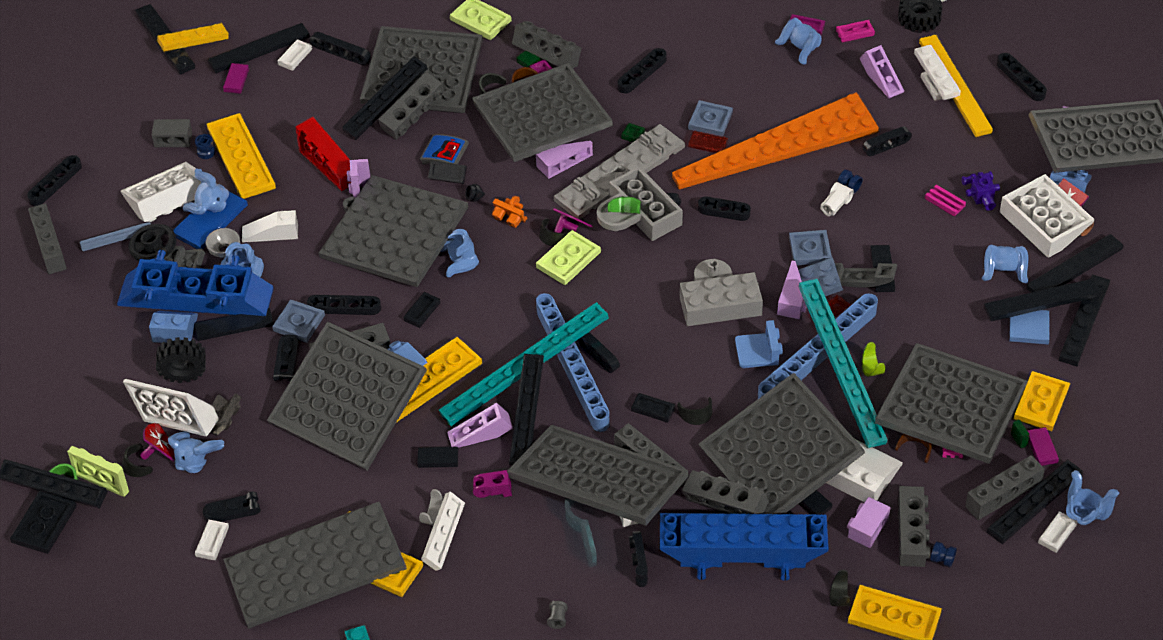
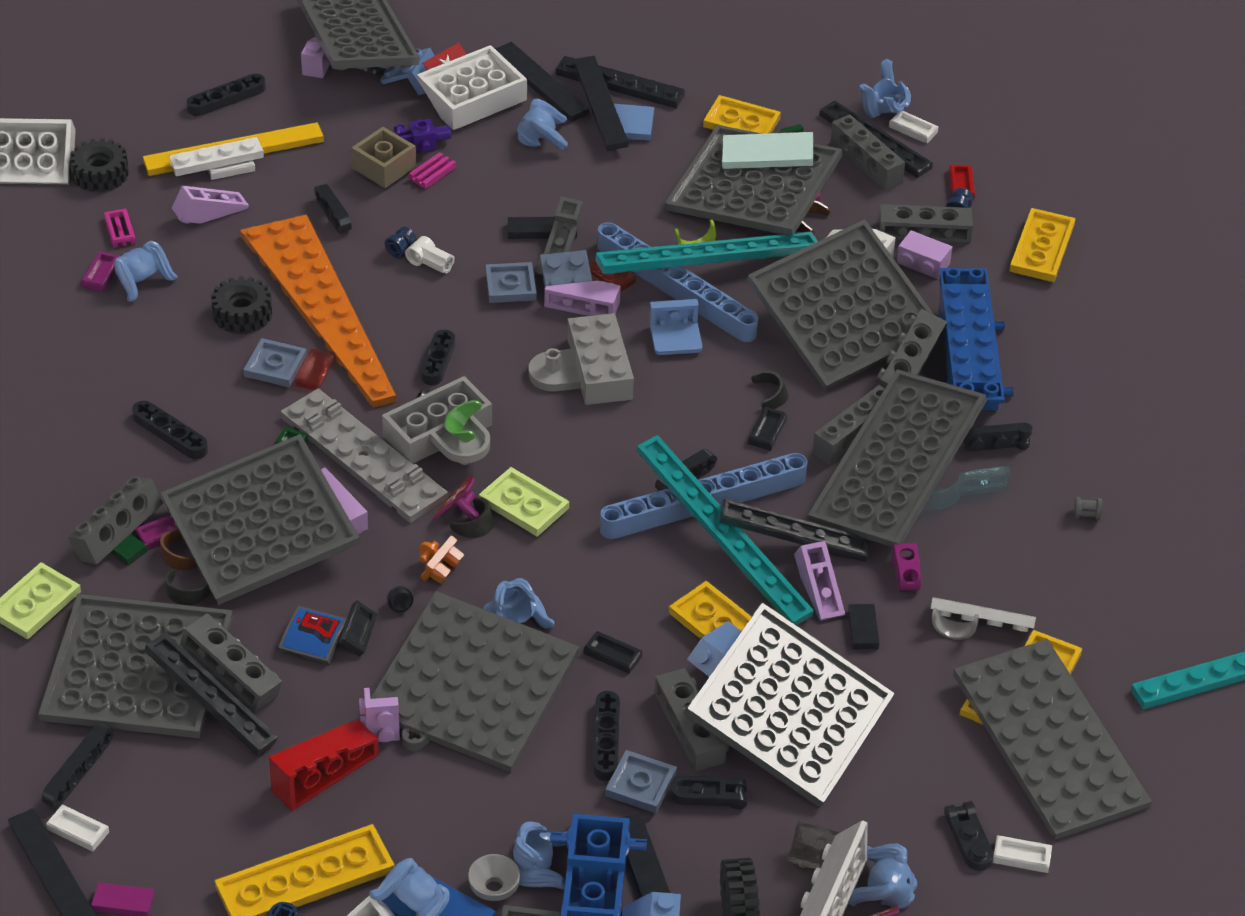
camera: 95 degrees left, 5 degrees down
(276, 226) = (461, 824): white slope -> none
(770, 87) = (241, 293): none -> black tyre
(838, 589) = (1025, 288): pearl dark grey helmet -> none
(946, 164) = (383, 157): none -> dark tan brick
(981, 563) = (961, 177): none -> red tile
(984, 407) = (767, 150): none -> light aqua tile
(1042, 446) = (809, 123): magenta tile -> none

